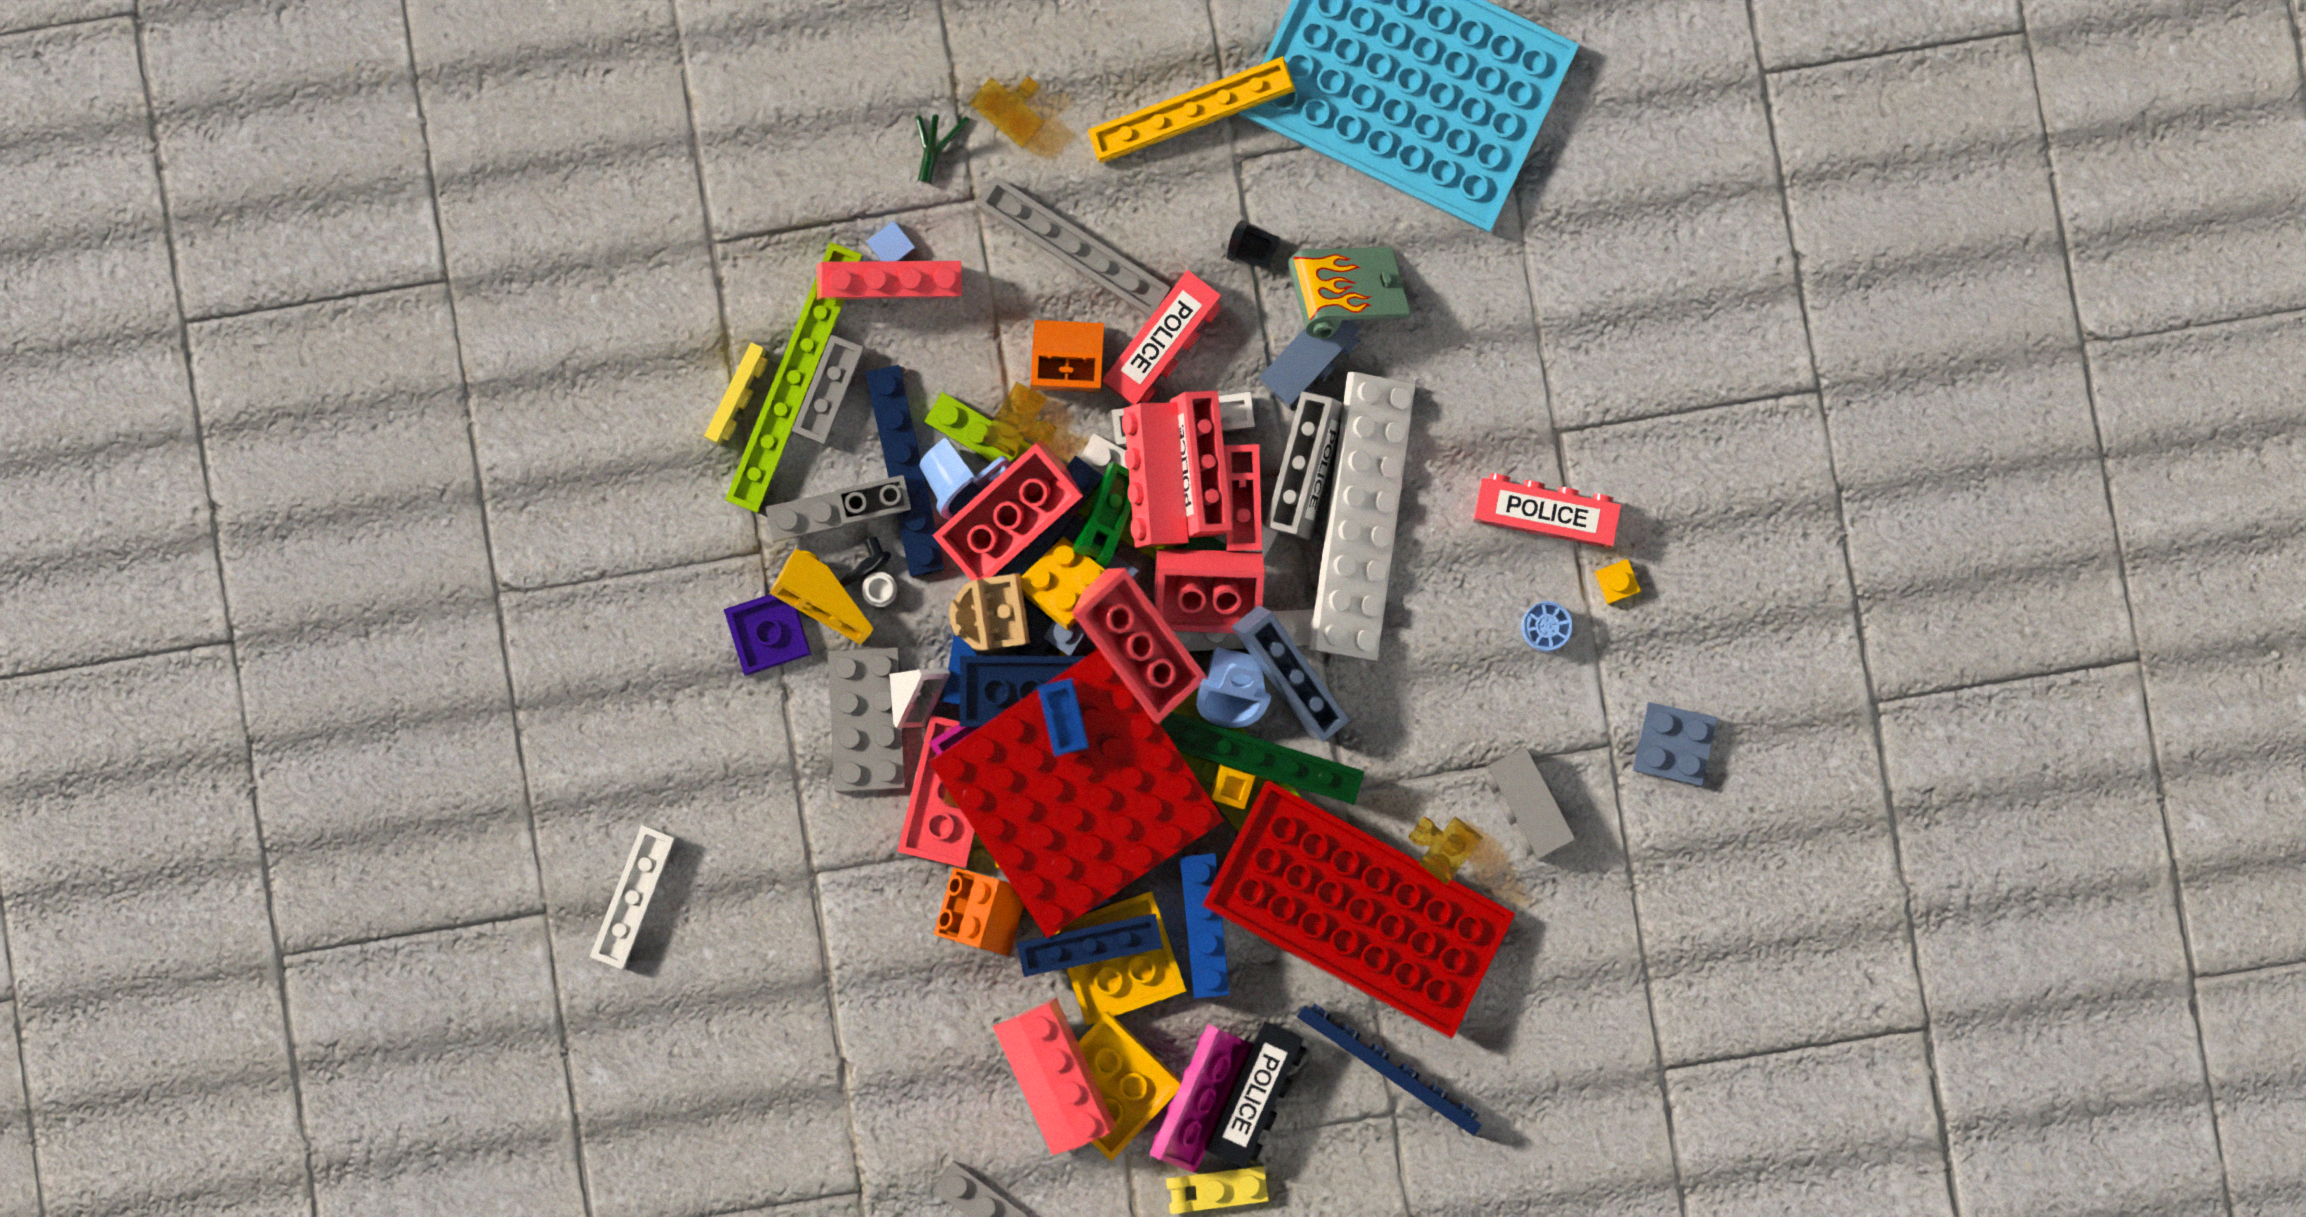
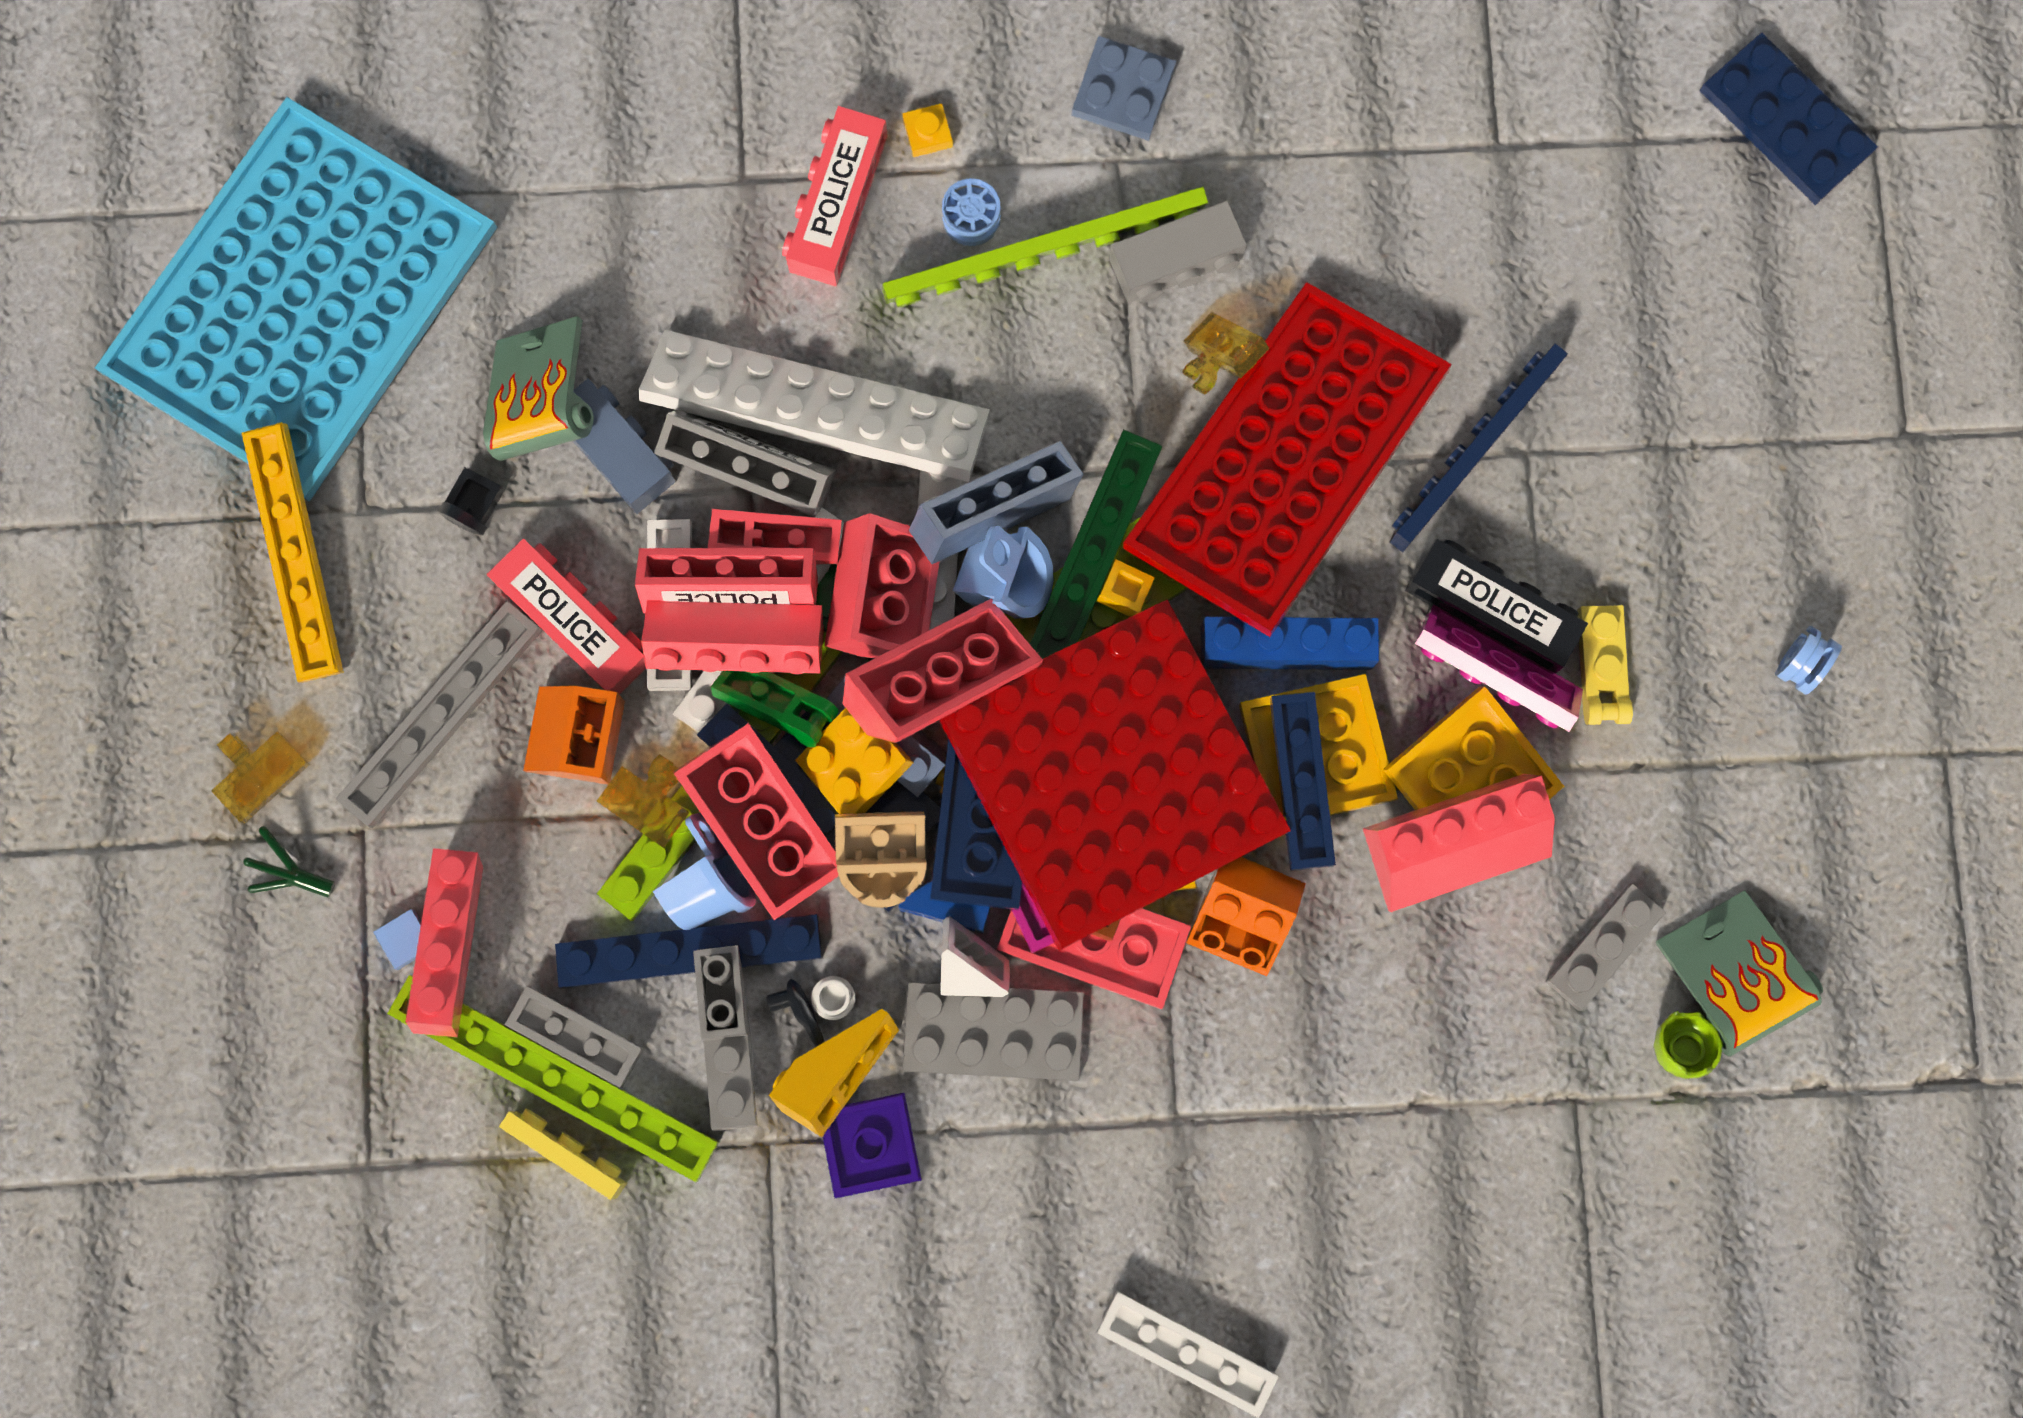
camera: 90 degrees left, 5 degrees down
(1063, 717) = (1024, 771): blue plate -> none
(1527, 705) = (1027, 252): none -> lime plate

